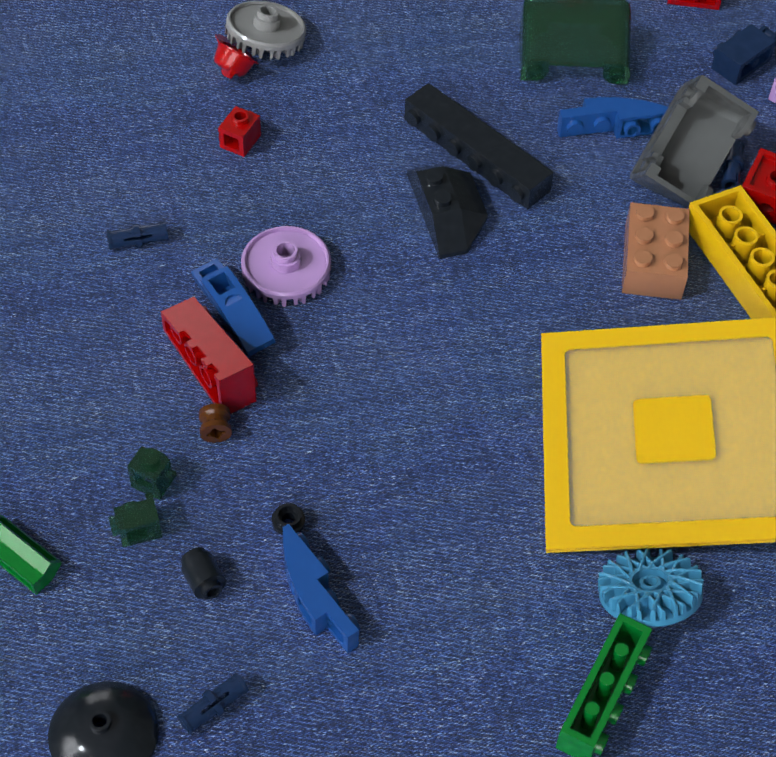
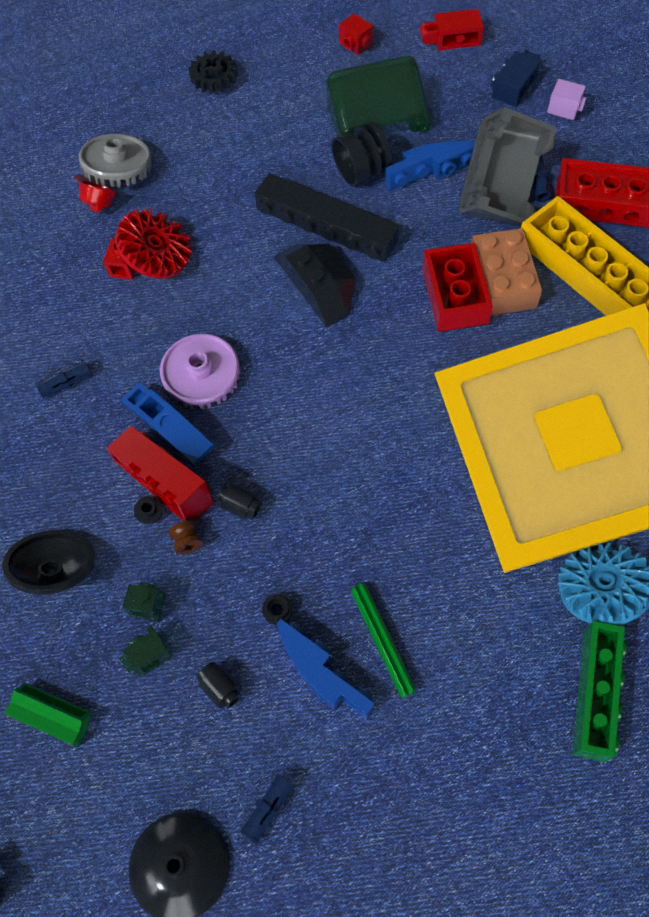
camera: 10 degrees left, 10 degrees up
(65, 405) = (48, 562): none -> black dish
(184, 394) = (149, 517): none -> black plate
(277, 124) = (152, 244): none -> red wheel
(284, 404) = (240, 501): none -> black brick
(391, 581) = (383, 640): none -> green axle
(537, 88) = (361, 153): none -> black wheel
(595, 252) = (456, 287): none -> red brick

